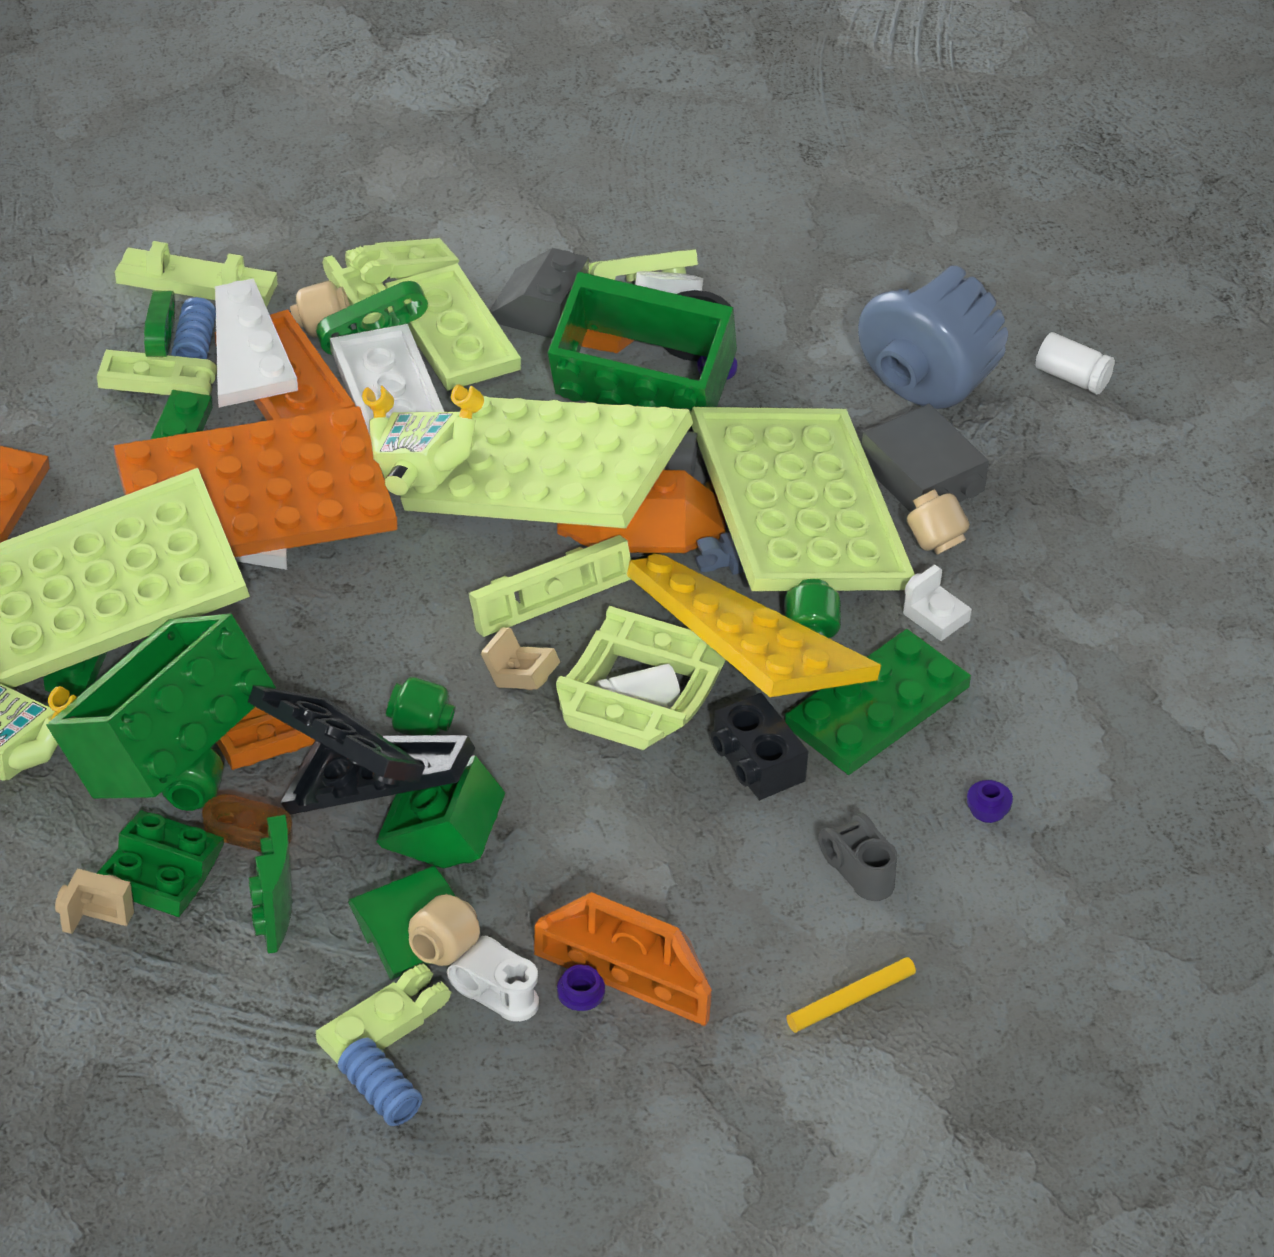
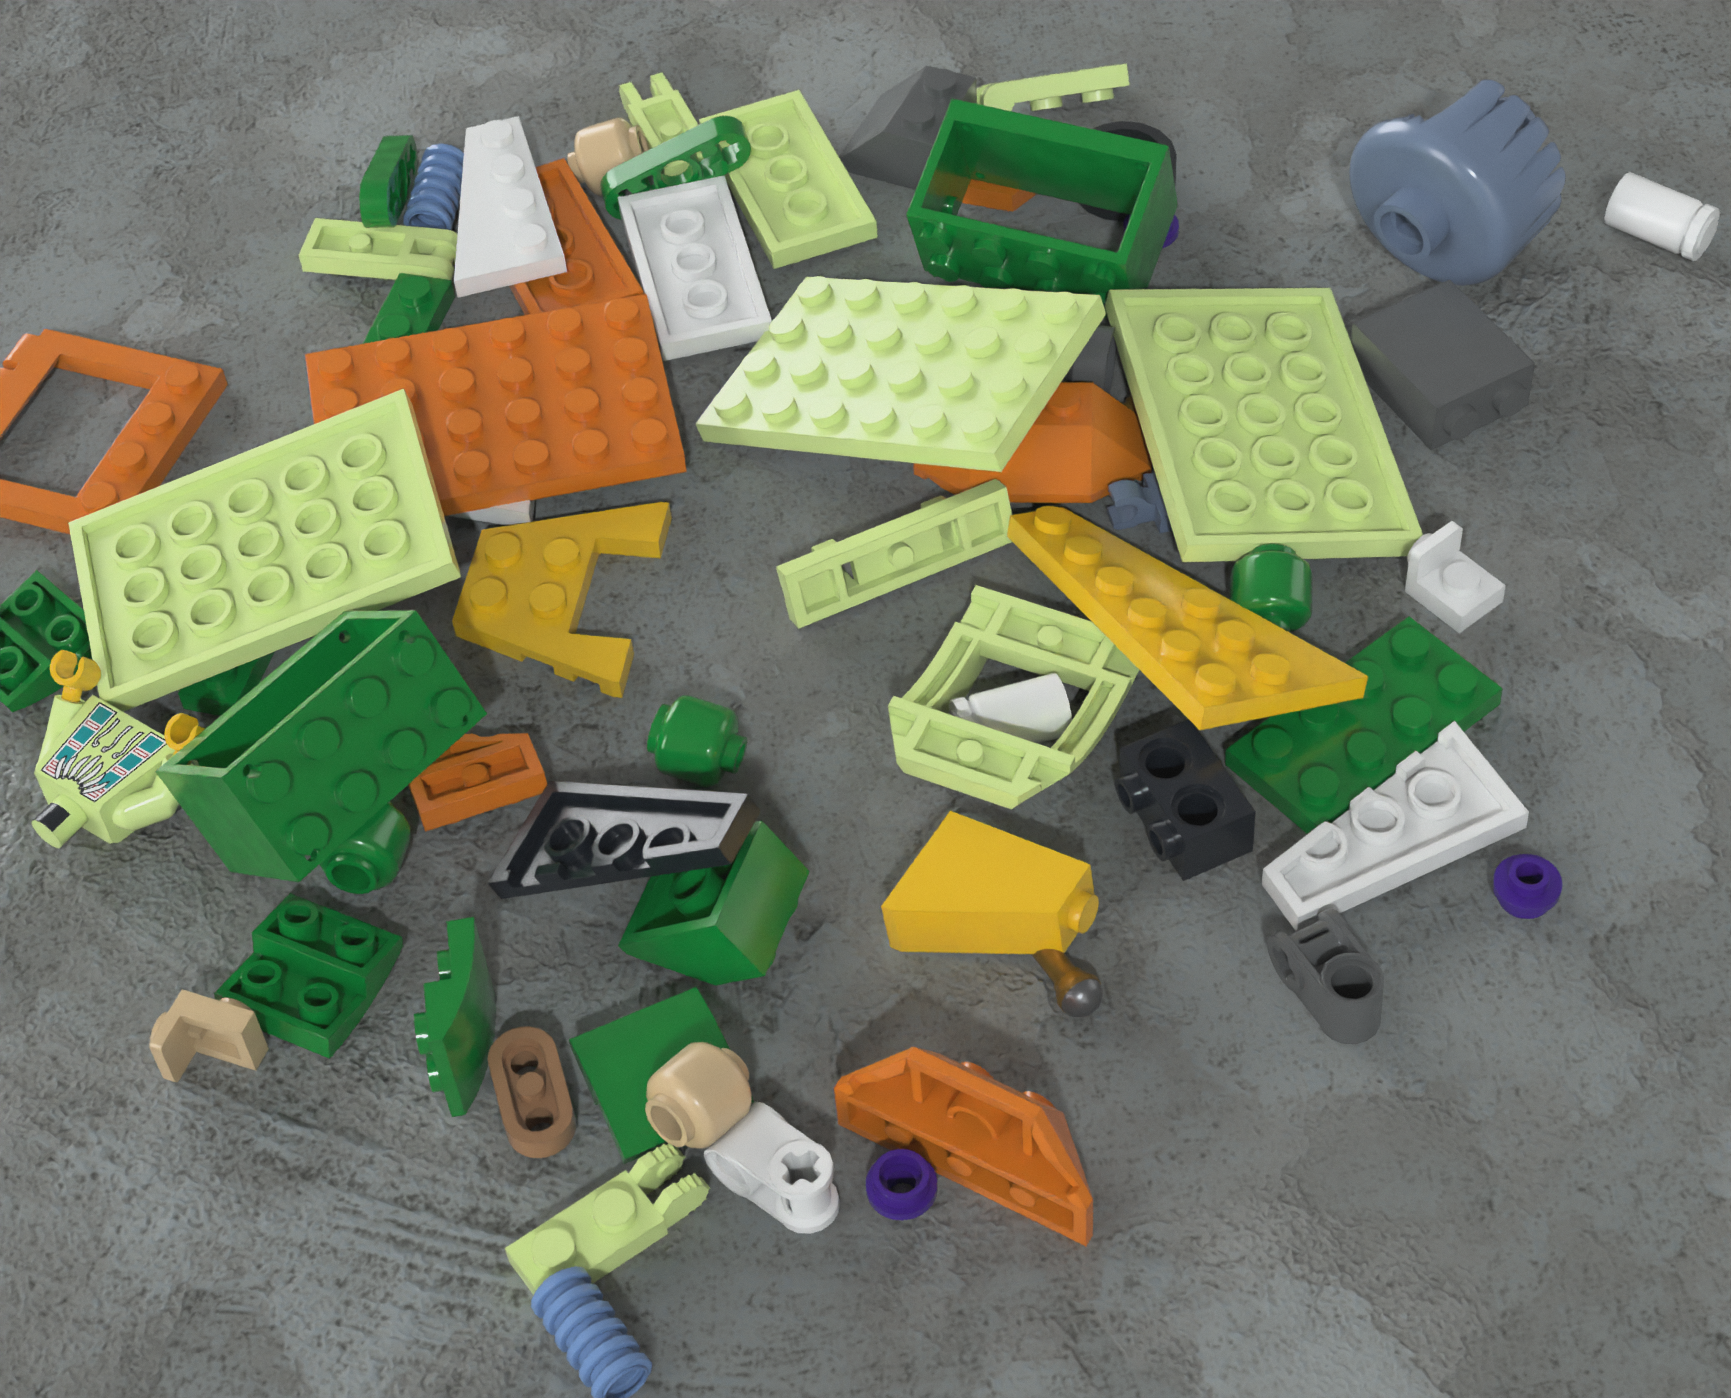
camera: 10 degrees right, 5 degrees up
(186, 274) = (441, 112): yellowish green hinge -> none
(246, 817) = (436, 903): clear orange plate -> none
(293, 606) = (533, 585): none -> yellow wing
(327, 937) = (533, 1096): none -> medium nougat plate
(340, 732) = (568, 785): black wing -> none
(400, 259) = (721, 85): yellowish green hinge -> none
(421, 445) = (724, 350): yellowish green torso -> none
(516, 665) = (839, 672): tan bracket -> none
(630, 806) = (988, 894): none -> yellow slope
(669, 282) = (1086, 111): white beam -> none
(690, 867) = (1076, 990): none -> piece
(850, 994) = (1308, 1200): yellow bar -> none
(910, 763) = (1411, 824): none -> white wing
(938, 522) = (1458, 455): tan head -> none

